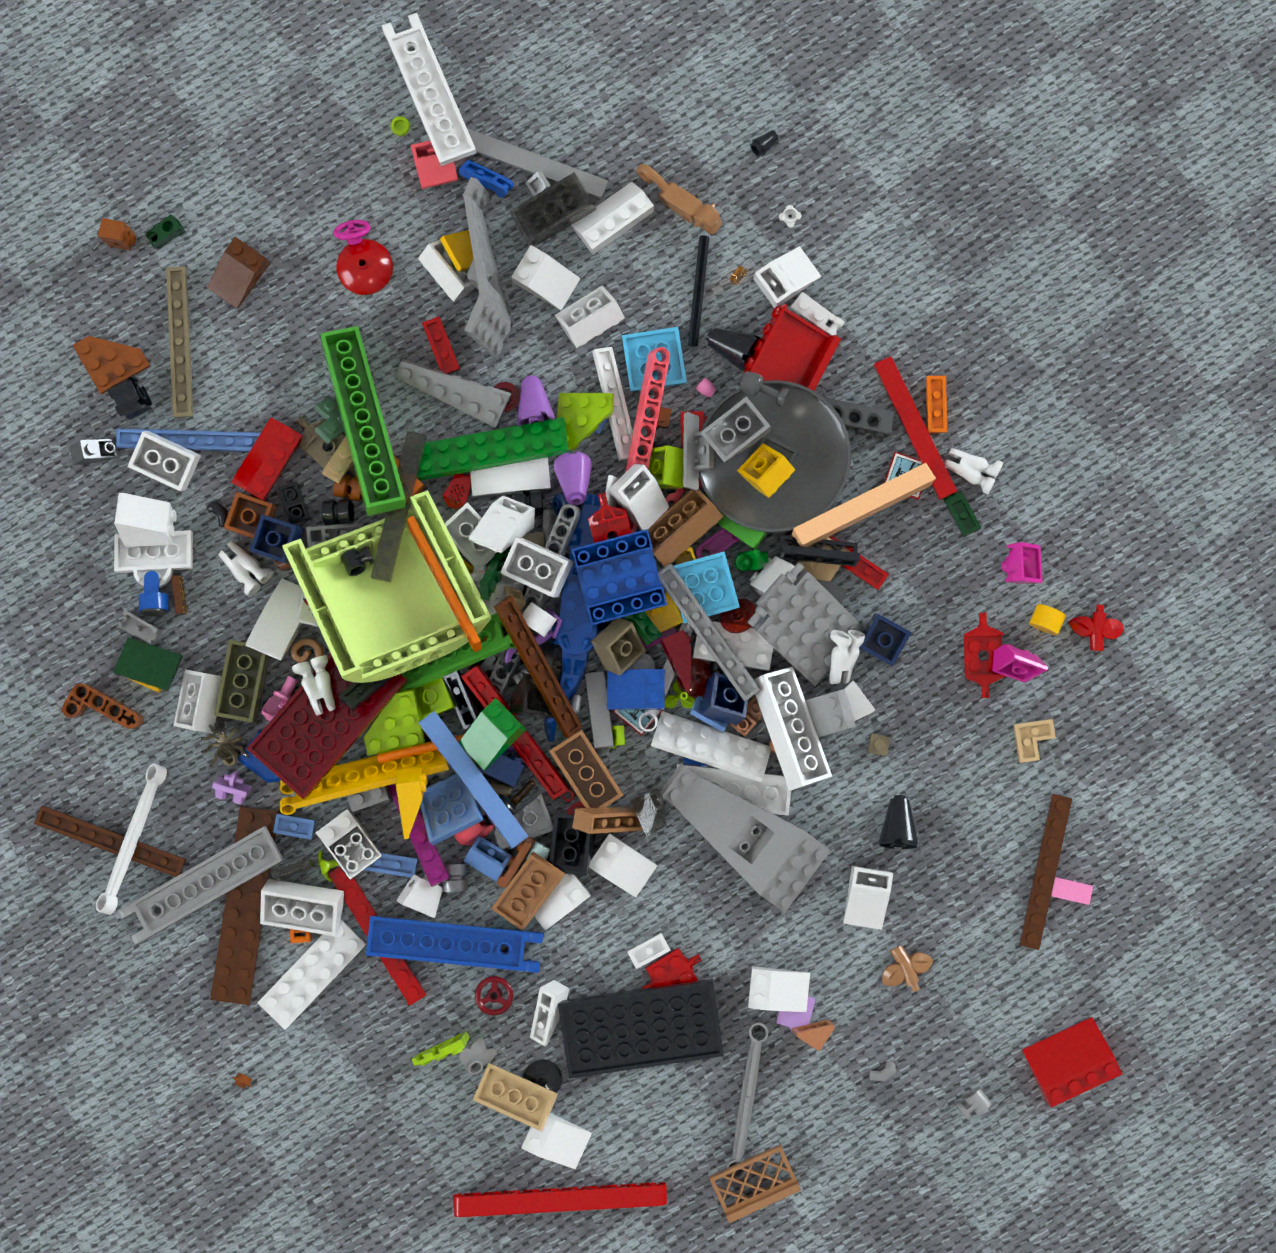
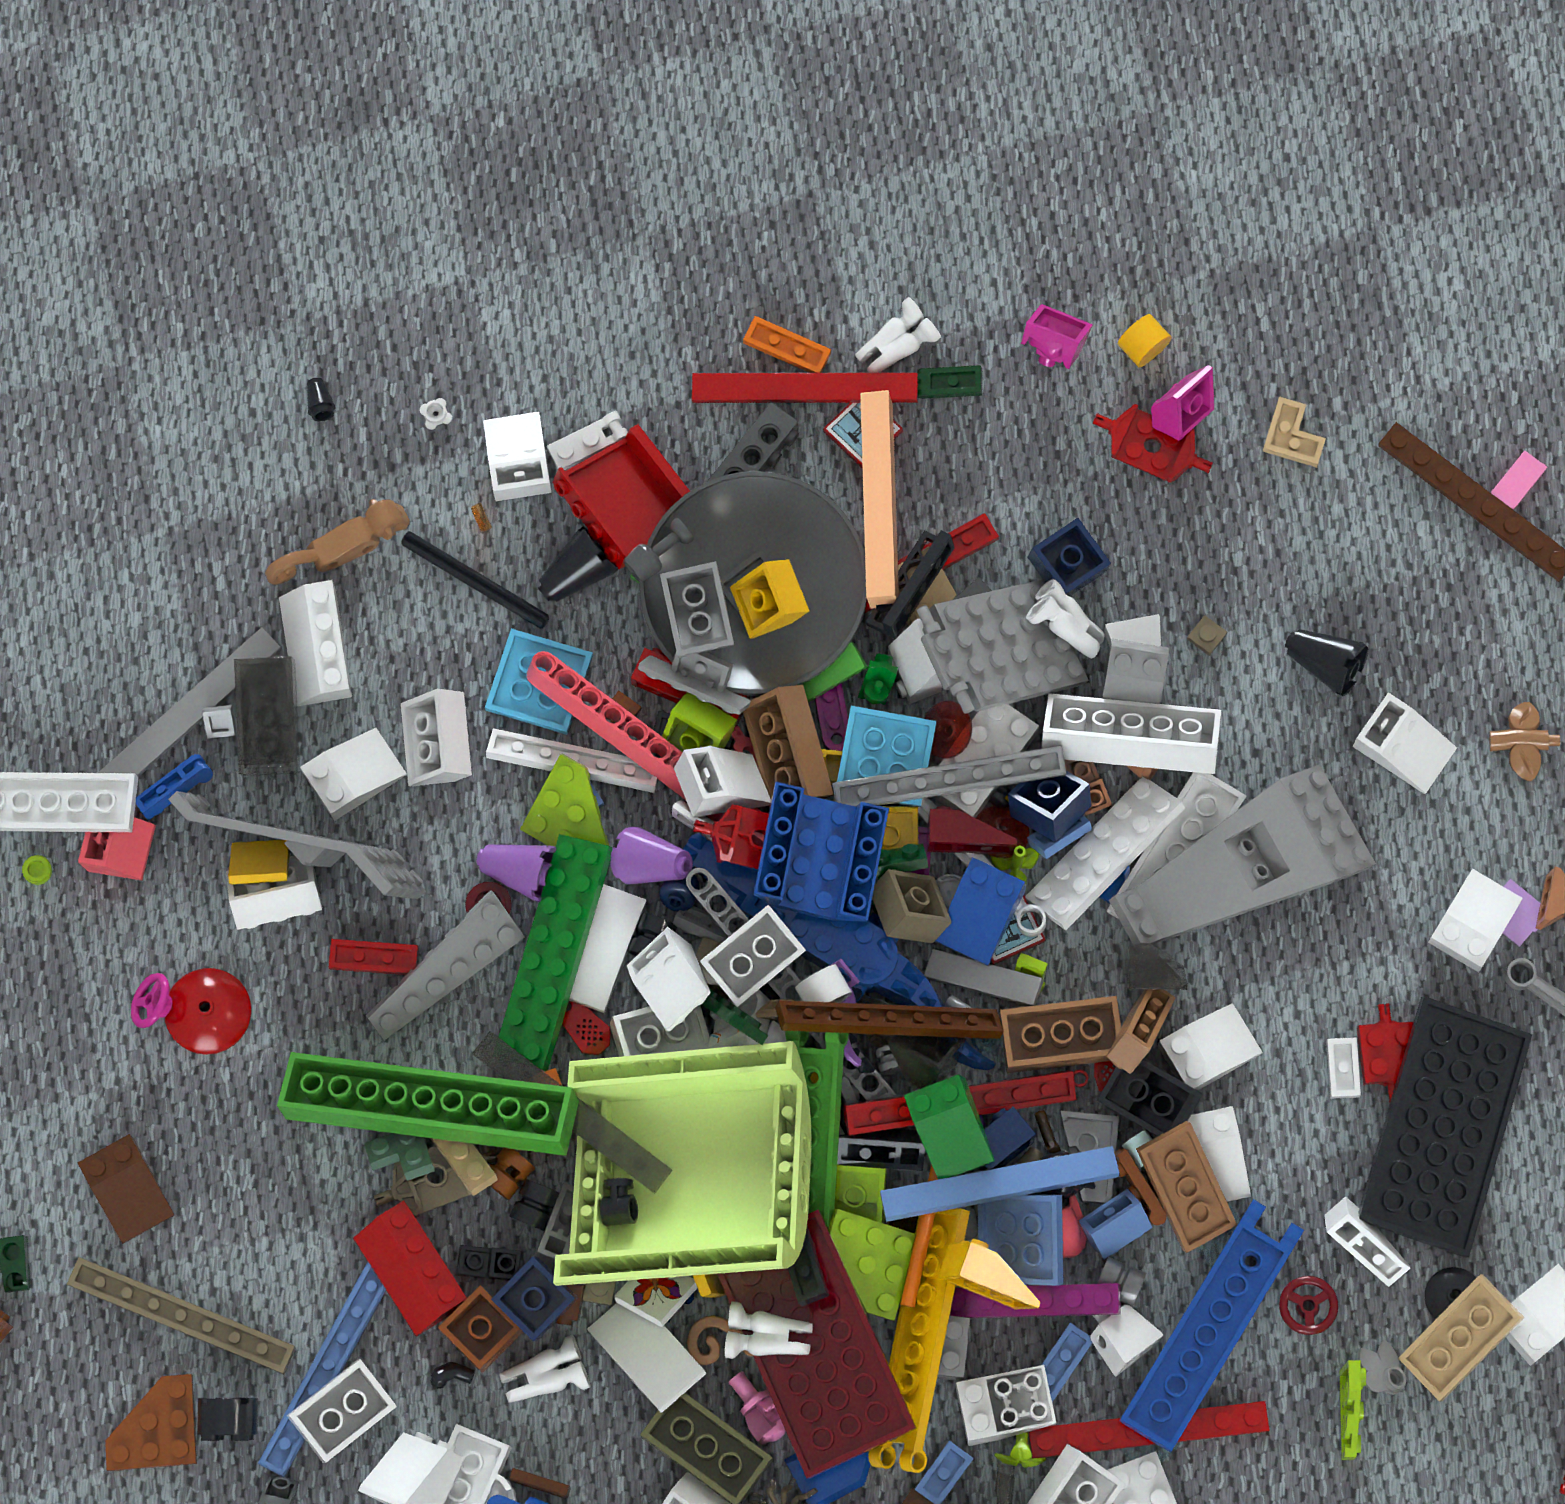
camera: 65 degrees left, 10 degrees down
(444, 584) = (713, 1091): orange tile -> none
(706, 387) = (612, 631): bright pink hose -> none
(1097, 628) = (1185, 285): red plant -> none

